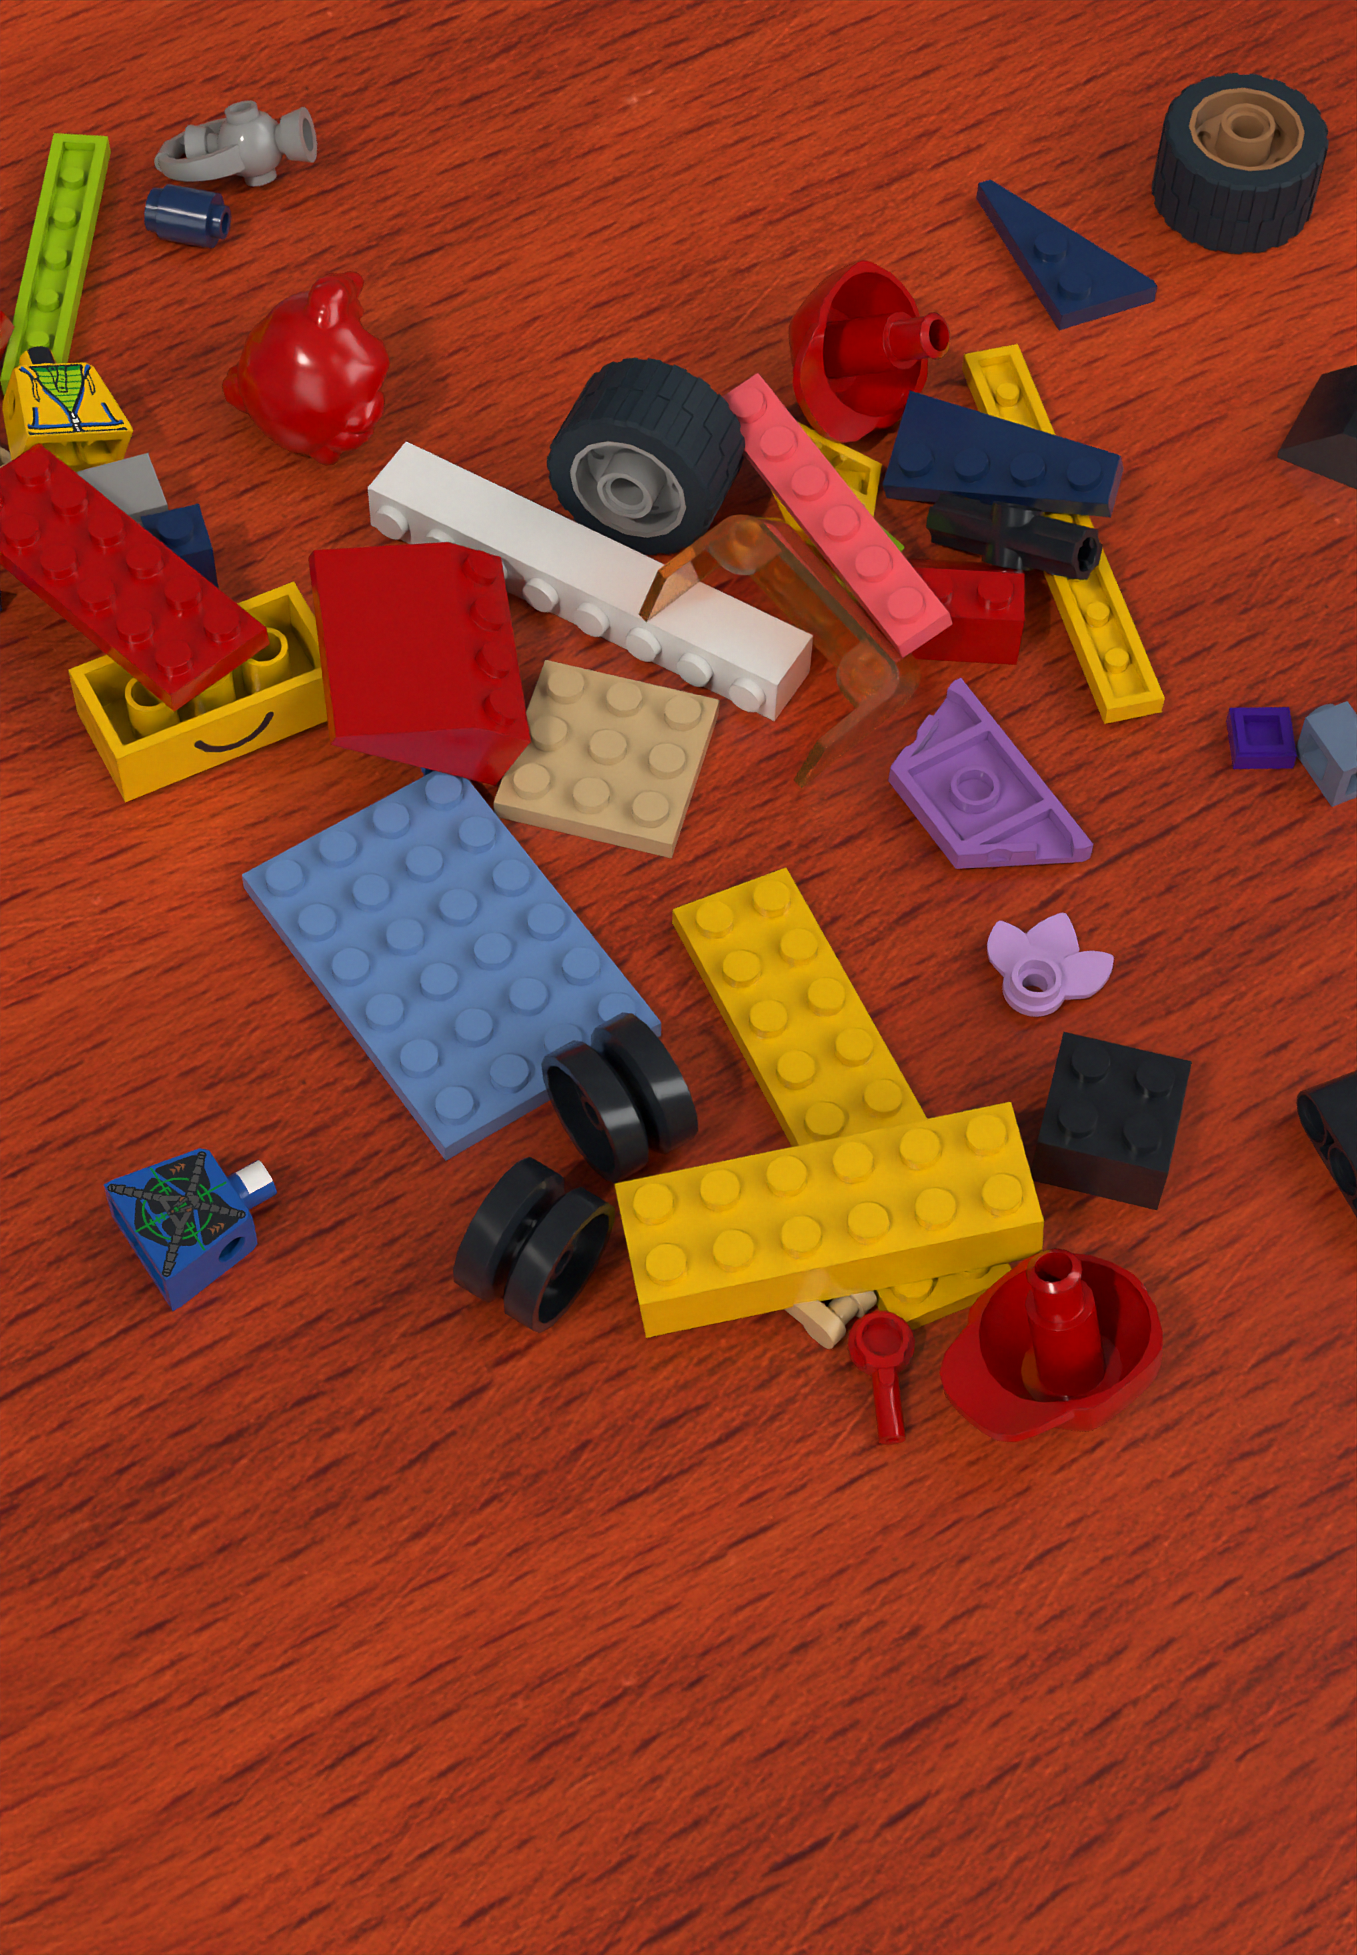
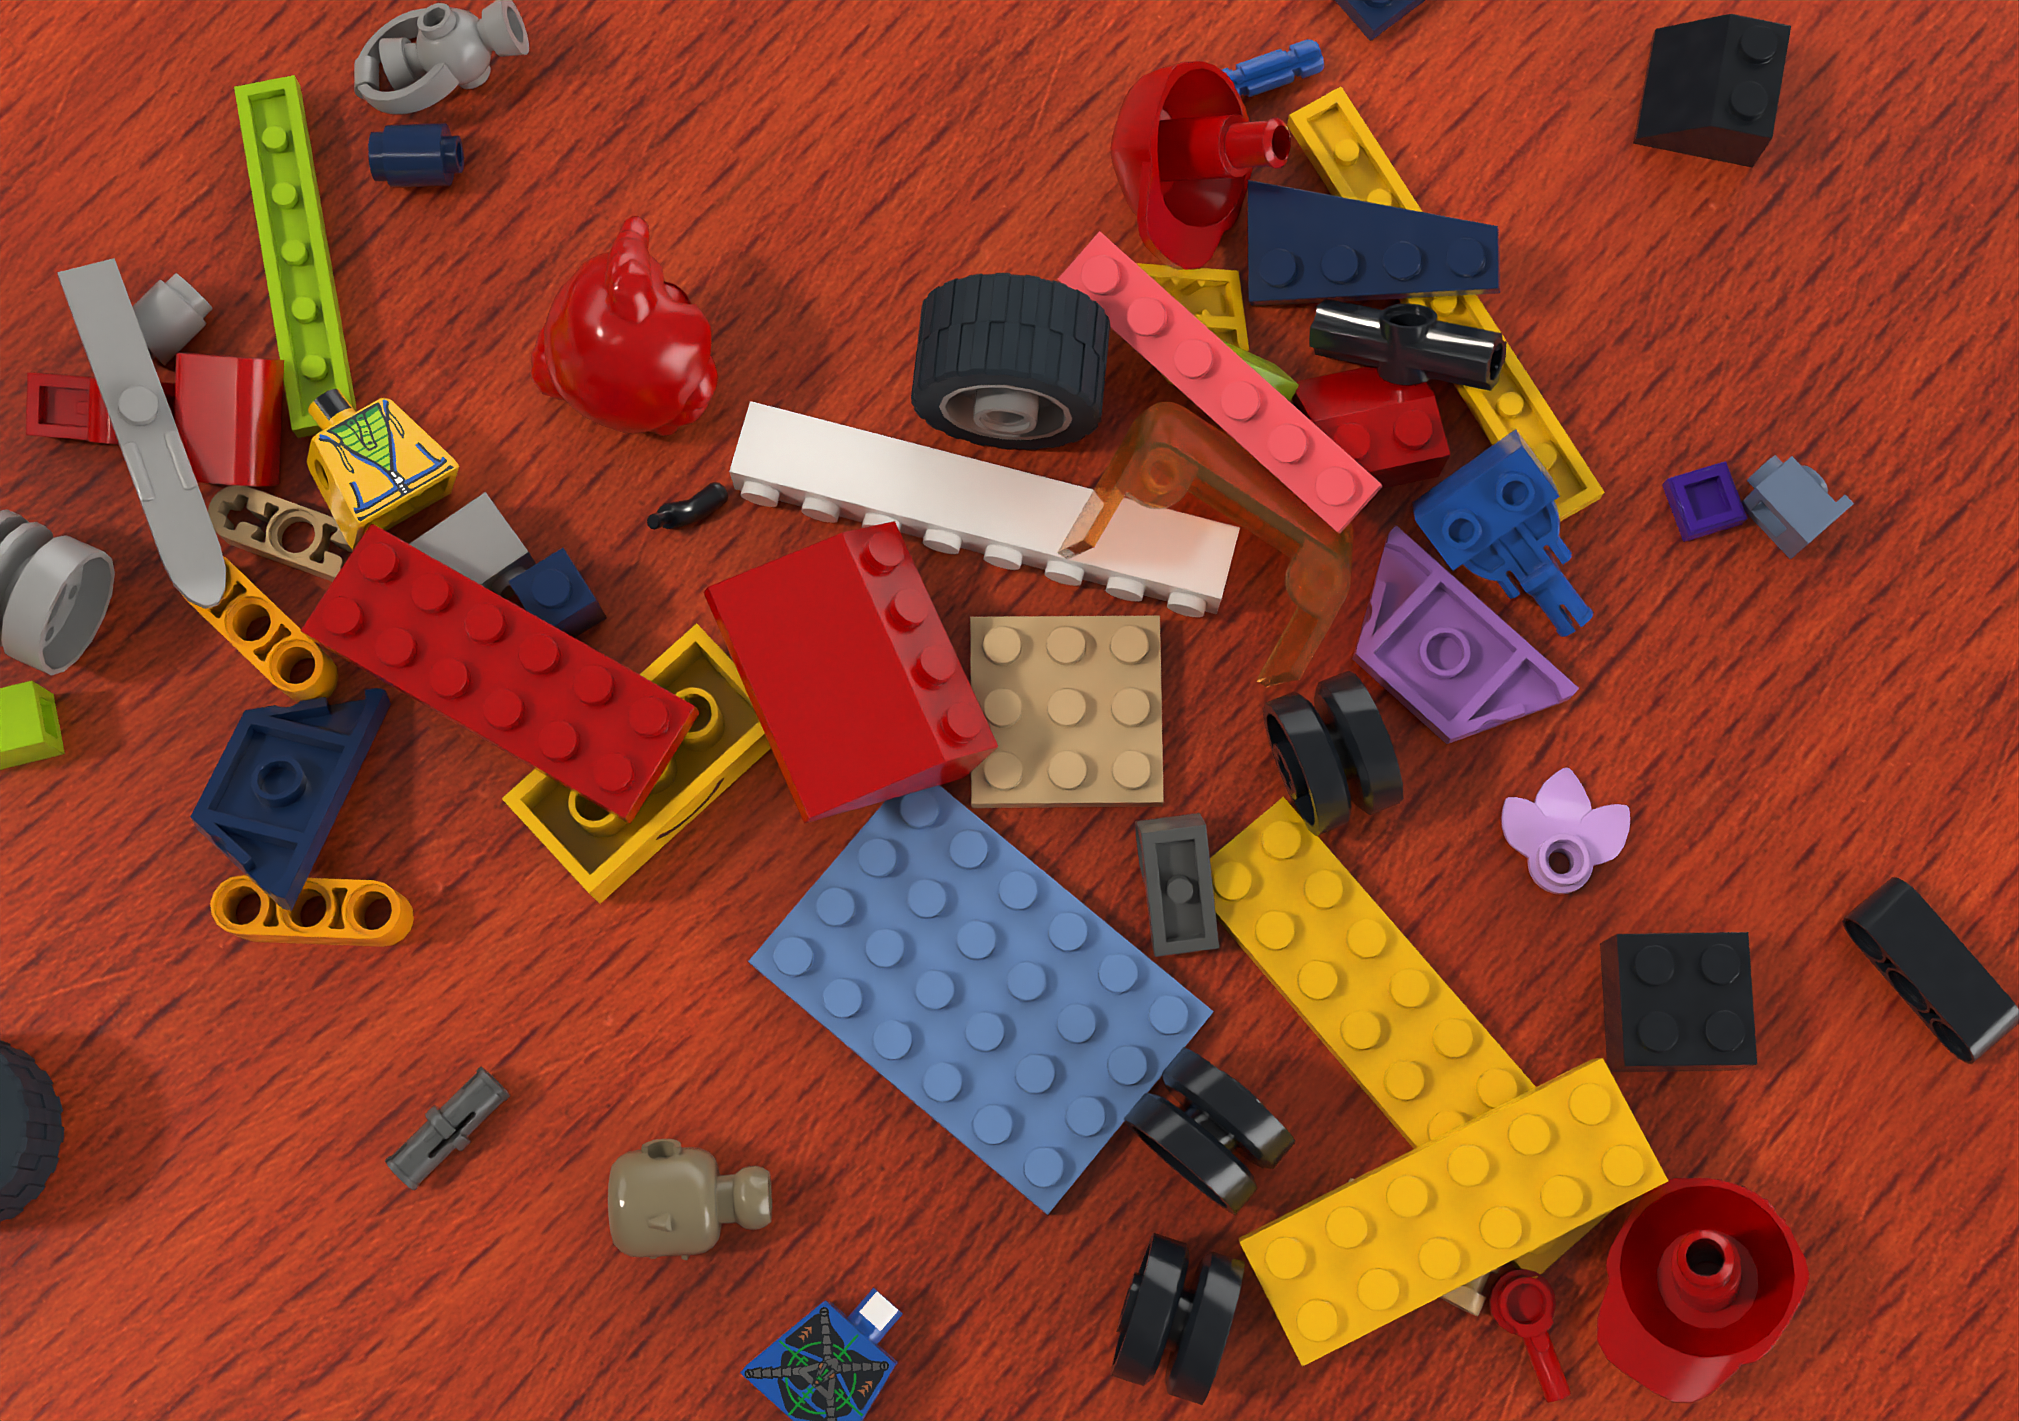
camera: 15 degrees left, 20 degrees up
(102, 1040) = (675, 1200): none -> dark tan piece
(324, 528) = (681, 513): none -> black piece
(661, 905) = (1177, 883): none -> dark grey plate
(840, 828) = (1333, 752): none -> black wheel
(968, 324) = (1276, 68): none -> blue axle
(1055, 686) = (1498, 520): none -> blue brick

